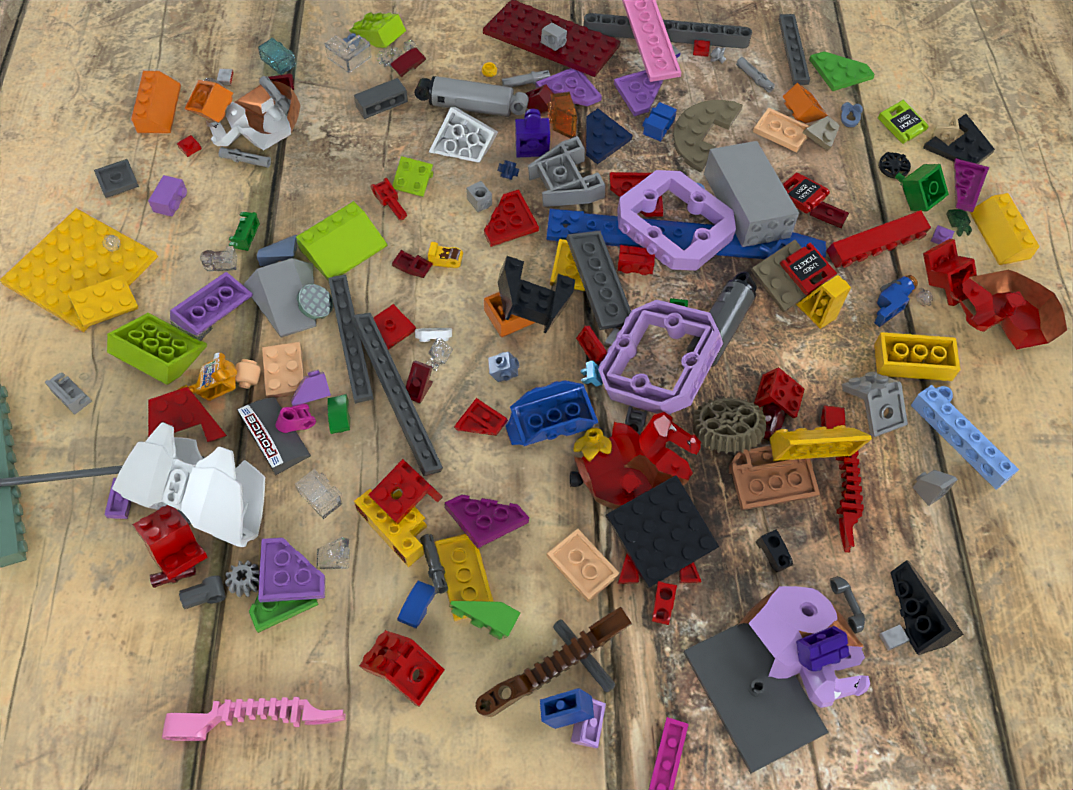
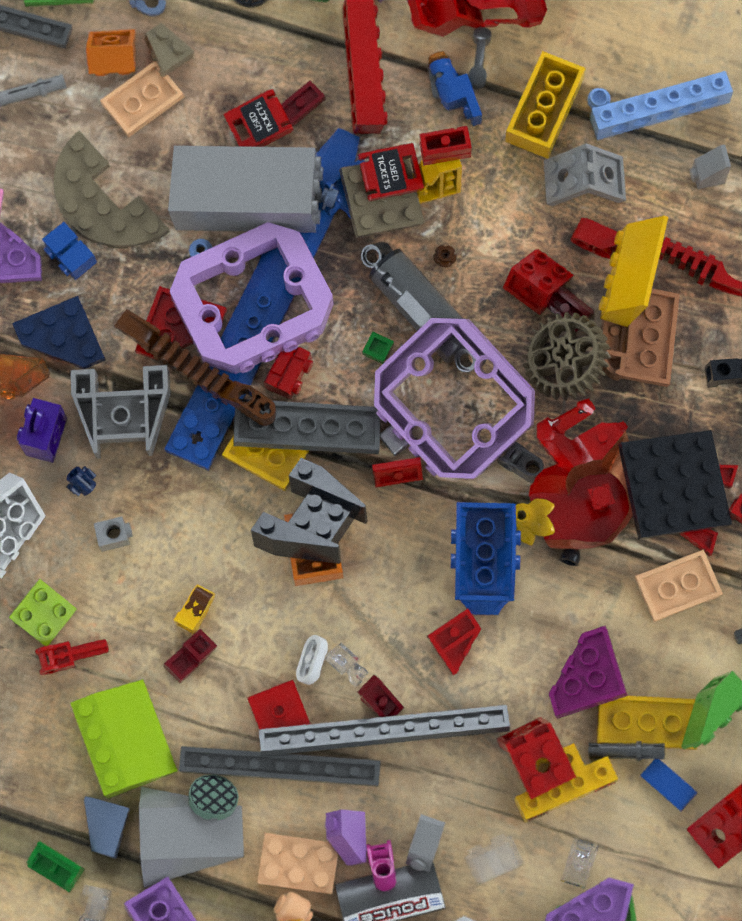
camera: 65 degrees left, 15 degrees up
(315, 439) = (425, 843): none -> light grey slope
(338, 414) = (391, 809): green slope -> none
(503, 366) = (394, 588): sand blue brick -> none
(510, 220) = (163, 505): red plate -> none
(592, 372) = (437, 484): medium azure tile -> none
(610, 202) = (191, 368): none -> reddish brown piece
(764, 334) = (449, 260): none -> reddish brown plate
(770, 239) = (329, 197): none -> sand blue plate
(842, 275) = (445, 145): none -> red brick
(913, 310) = (477, 74): none -> dark grey bar
(924, 297) = (463, 53): clear plate -> none

